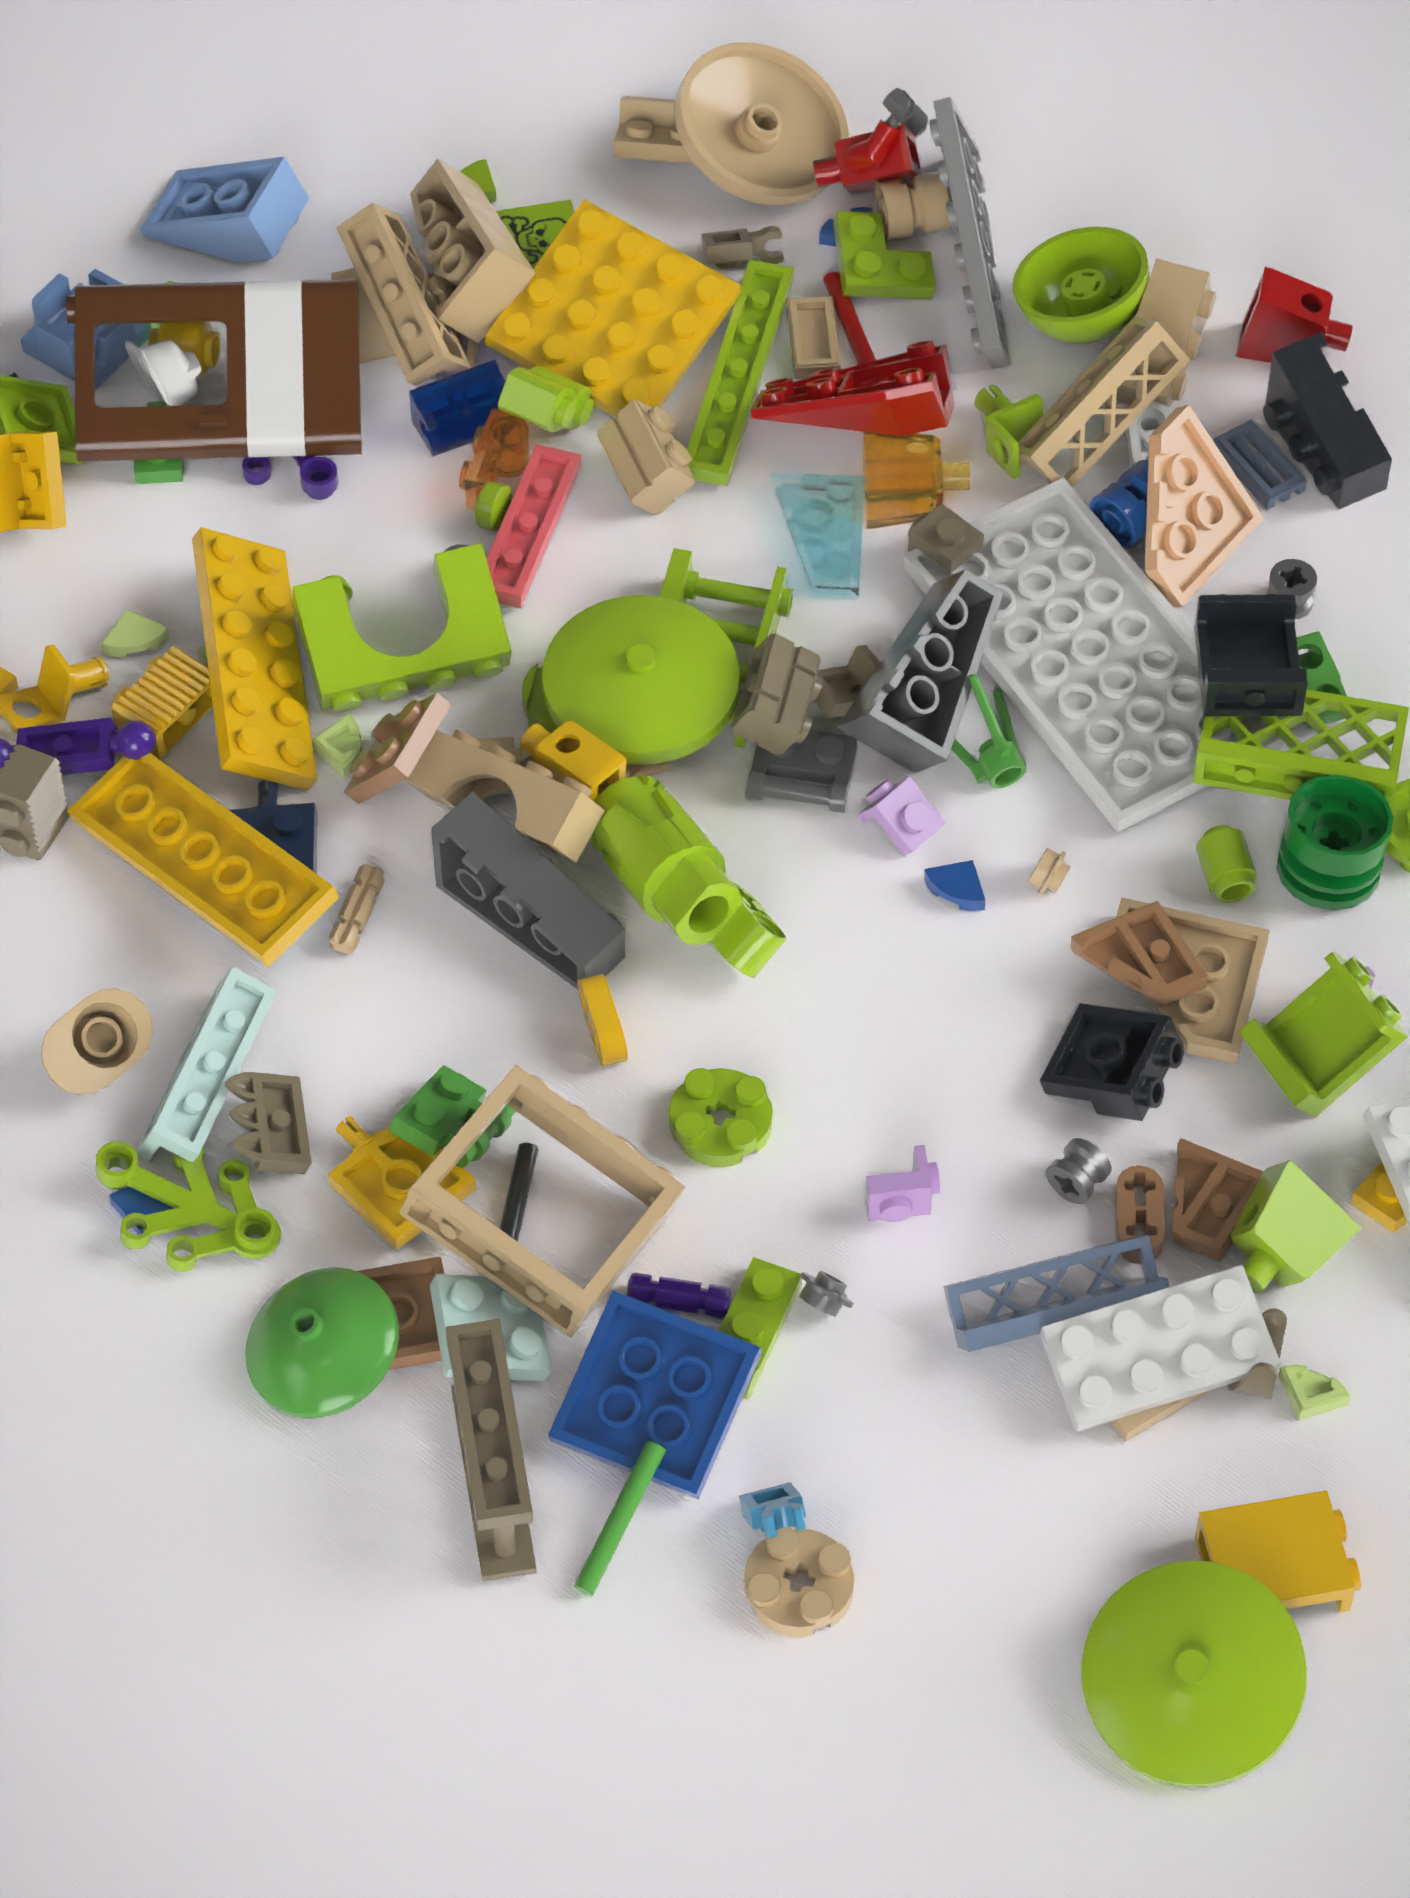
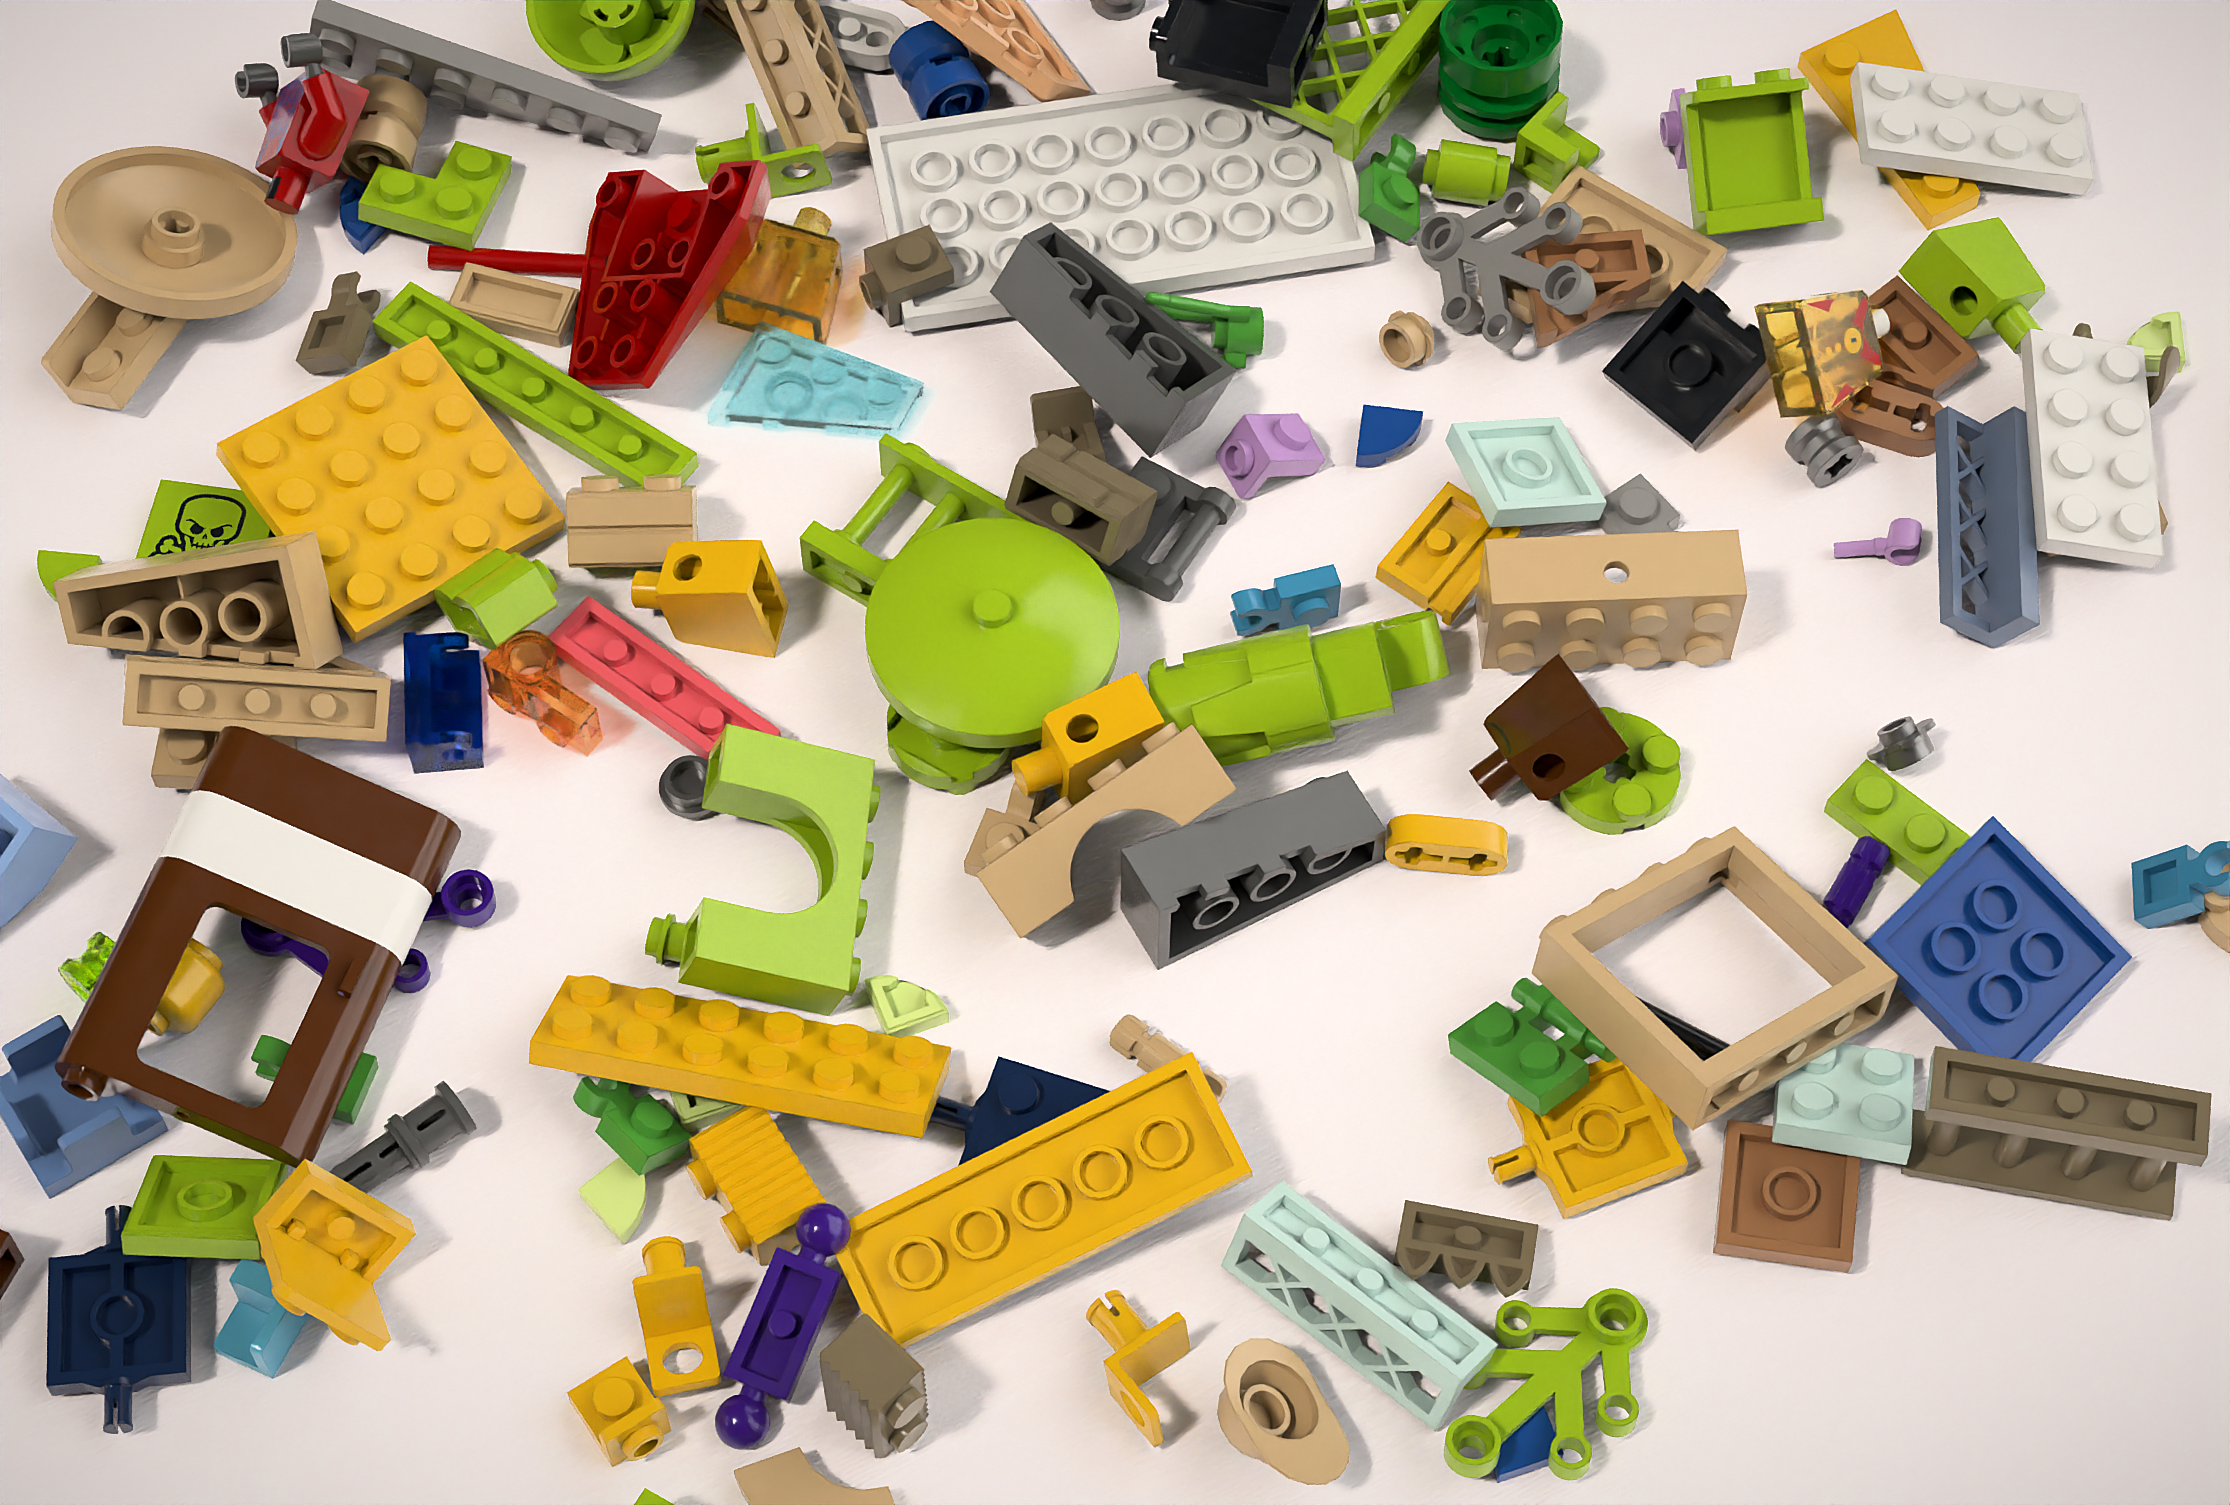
camera: 70 degrees left, 5 degrees up
(120, 957) = (1137, 1356): none -> yellow bracket
(123, 506) = (413, 1138): none -> dark grey pin
(167, 370) = (227, 1015): white piece -> none
(179, 622) = (634, 1128): none -> bright green plate
(337, 1357) = (1757, 1297): bright green dish -> none
(396, 747) = (969, 931): medium nougat plate -> none
(492, 505) = (618, 718): lime tile -> none
(609, 506) = (717, 595): none -> yellow torso
(619, 1518) = (2129, 1031): bright green bar -> none
(694, 1041) = (1547, 736): none -> reddish brown torso
(774, 868) = (1293, 601): none -> dark azure plate
(849, 1052) = (1554, 599): none -> tan brick
(863, 952) = (1442, 554): none -> yellow plate
(903, 1194) = (1793, 601): lavender bracket -> none
(952, 973) = (1525, 471): none -> light aqua plate
(955, 1072) = (1637, 509): none -> light grey plate
(1017, 1251) = (1899, 547): none -> lavender hand
(1111, 904) = (1450, 240): none -> light grey plant
(1154, 1126) = (1821, 349): none -> clear yellow torso
(1176, 819) = (1387, 195): none -> bright green plate
(1289, 912) = (1549, 148): none -> lime panel

